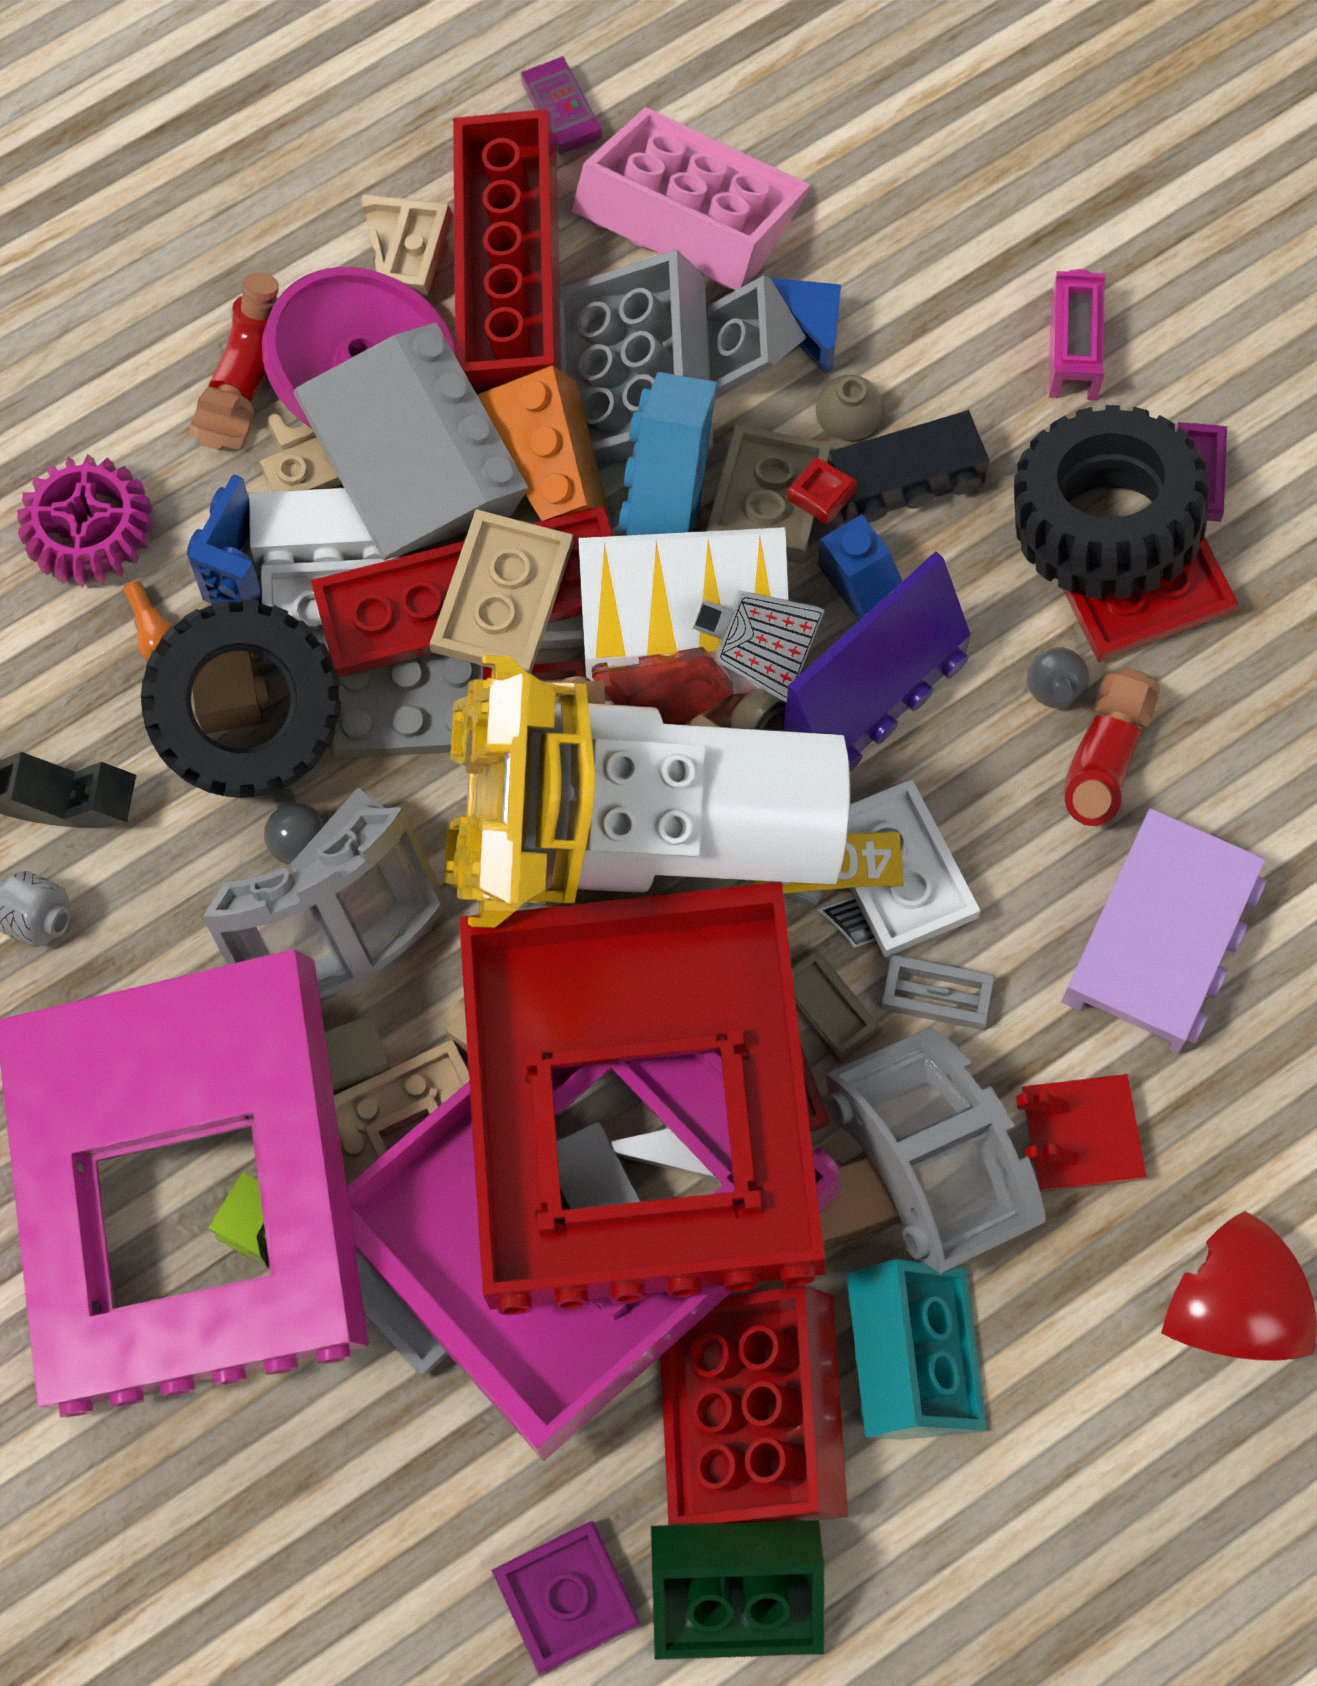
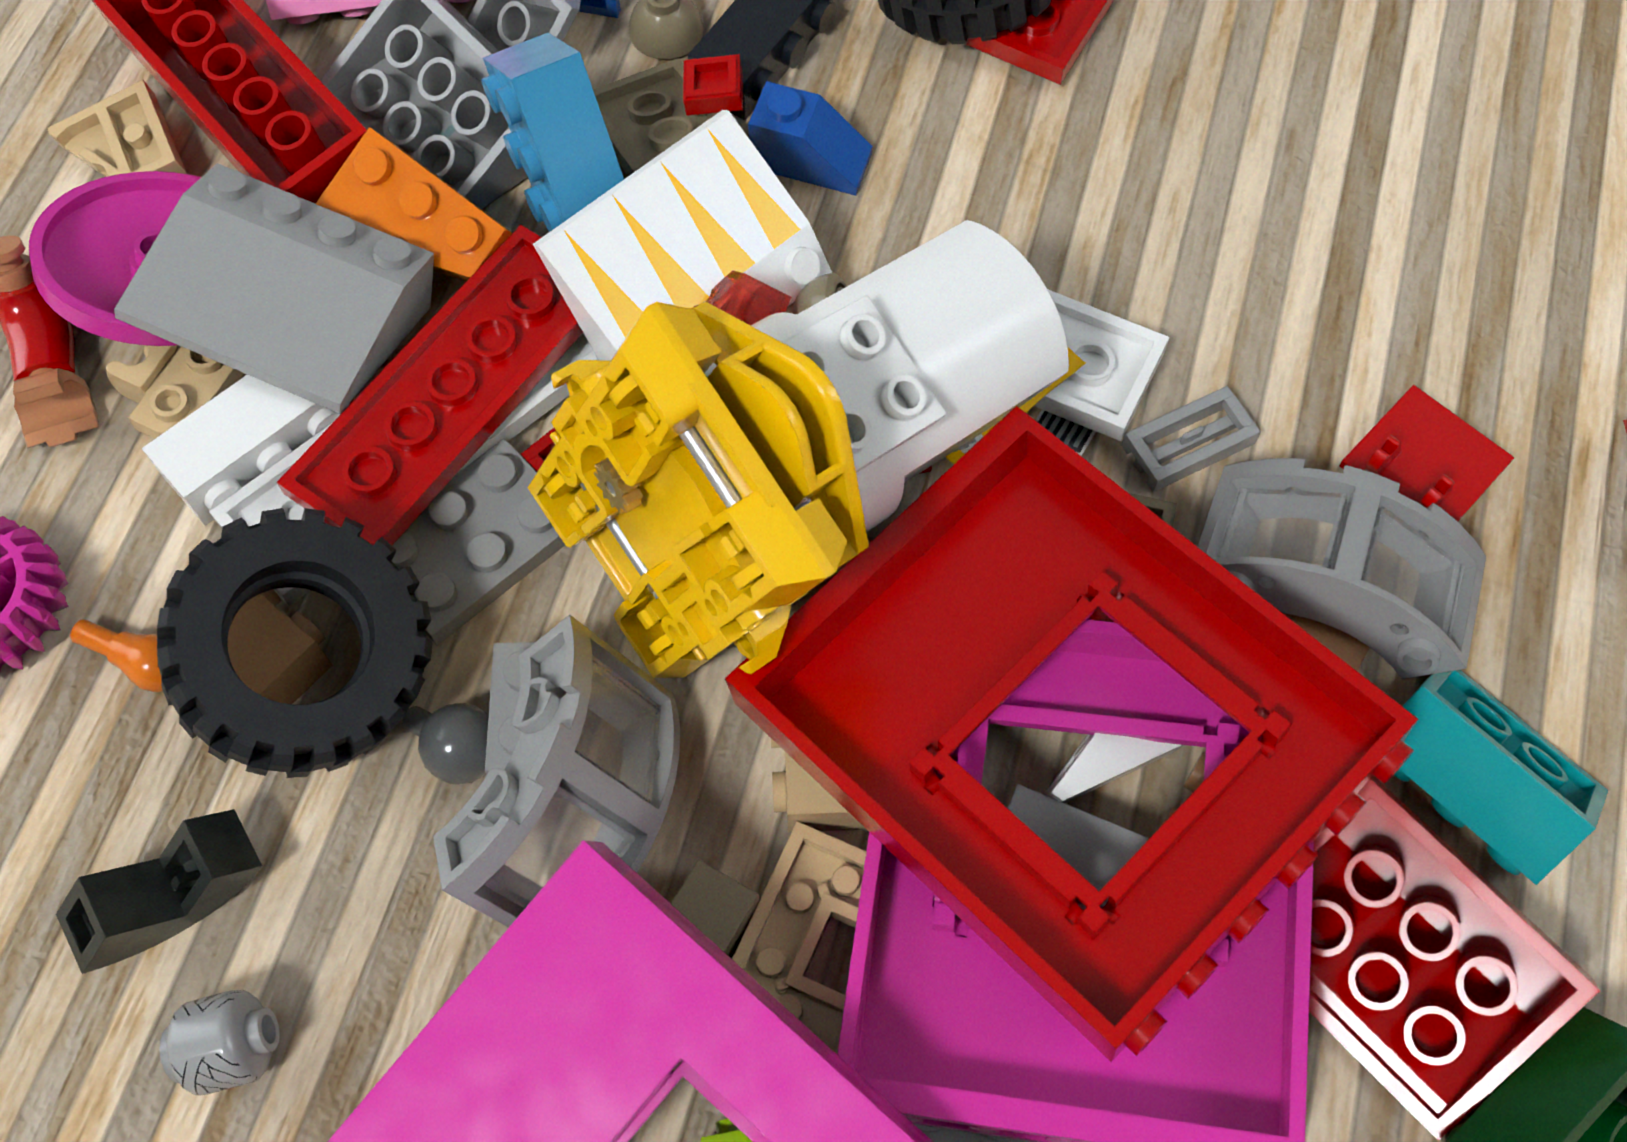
camera: 40 degrees left, 5 degrees down
(215, 551) = (146, 518): blue bracket -> none
(502, 591) = (488, 356): tan plate -> none
(761, 637) = (787, 220): light grey torso -> none
(883, 663) = (905, 162): dark purple slope -> none
(1057, 677) = (1045, 112): dark grey piece -> none
(1104, 754) = (1144, 156): piece -> none
(1167, 929) = (1327, 245): lavender panel -> none

